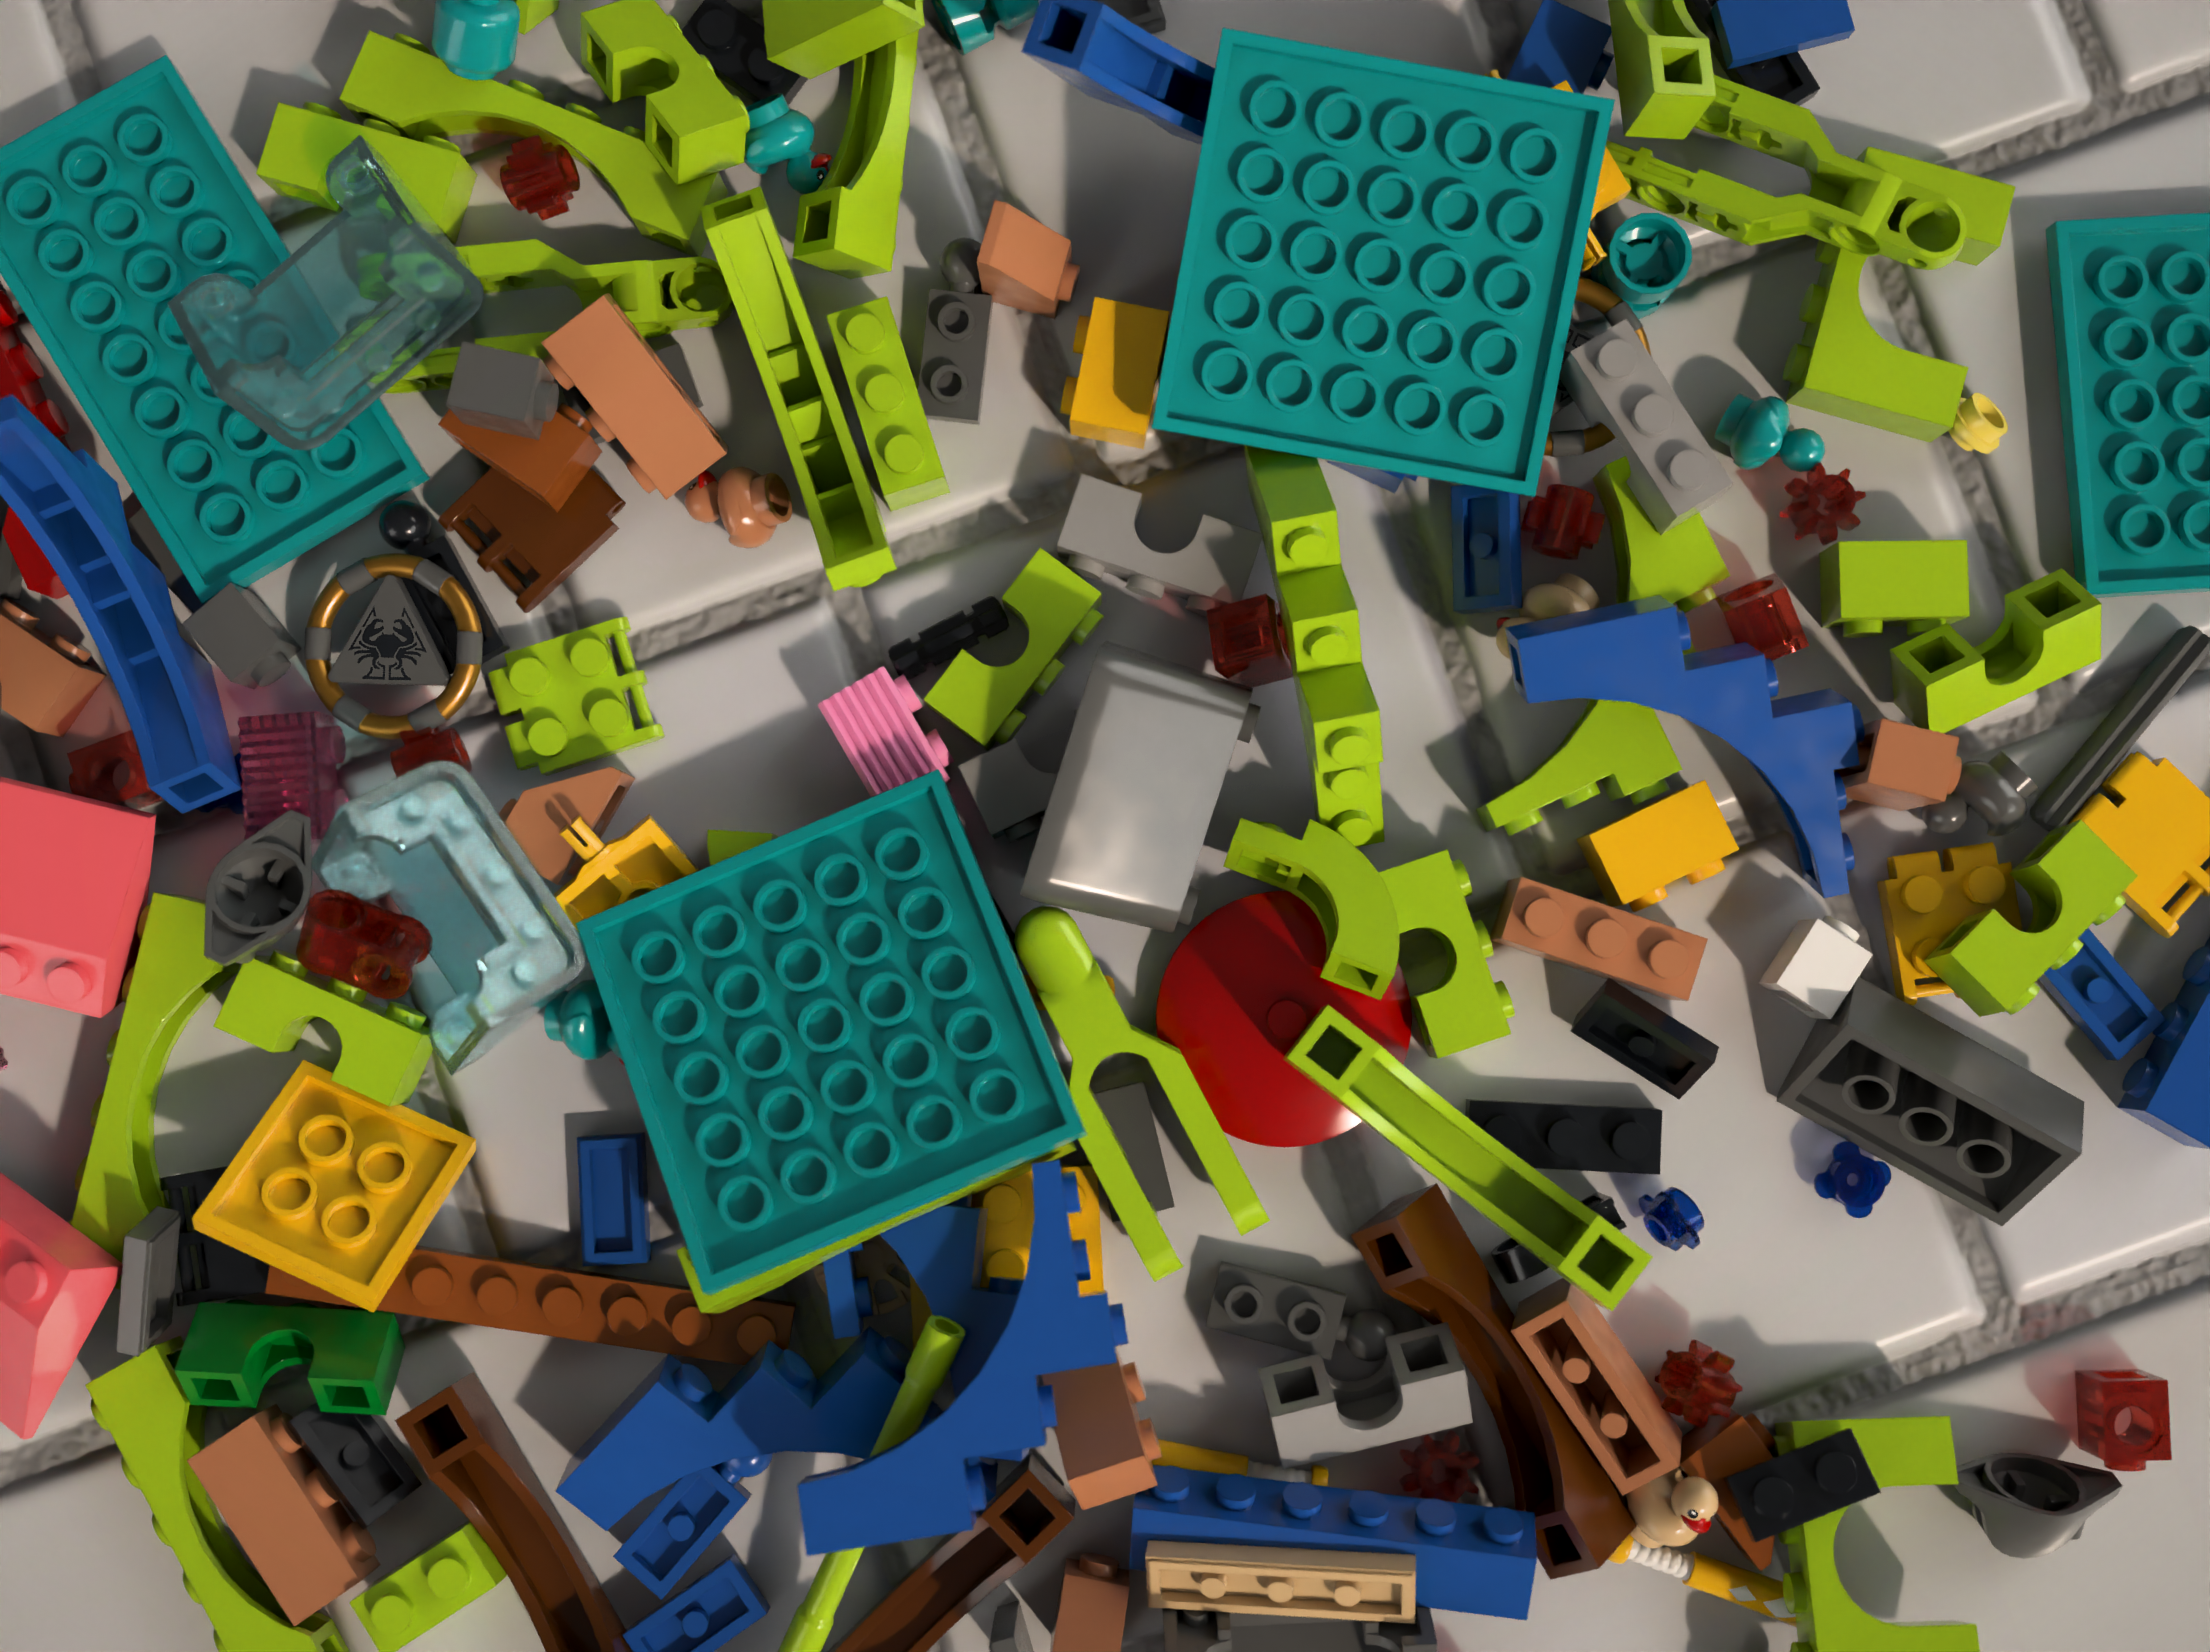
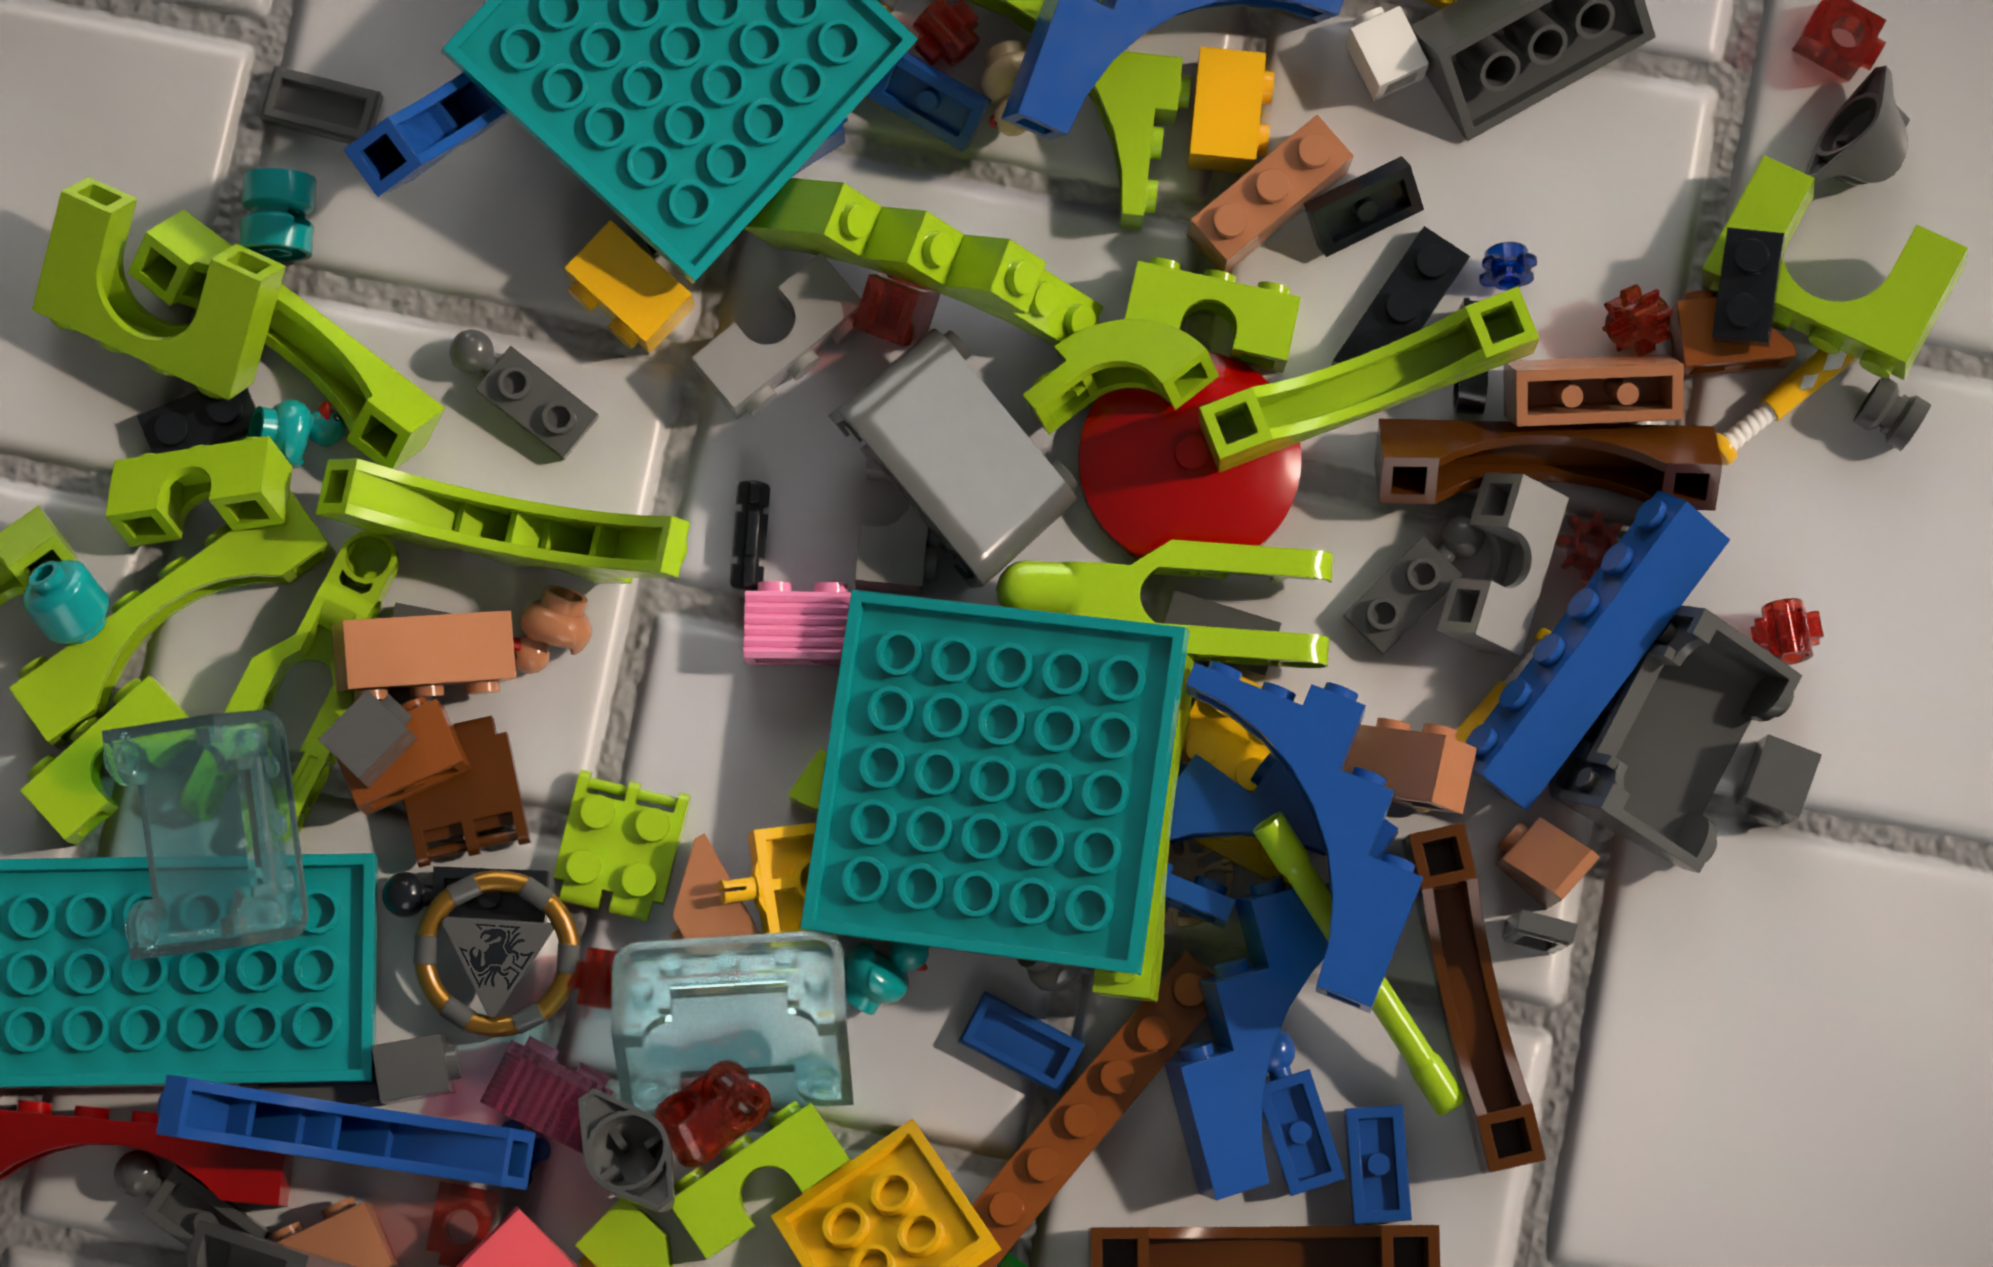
camera: 65 degrees left, 5 degrees down
(539, 177) = (202, 629): clear red gear -> none
(888, 403) = (536, 465): lime arch -> none
(988, 699) = (778, 443): lime arch -> none
(1025, 263) = (506, 303): nougat slope -> none
(1281, 1581) = (1598, 699): tan tile -> none
(1671, 1509) = (1714, 393): tan animal -> none
(1871, 1181) = (1564, 107): clear blue plate -> none

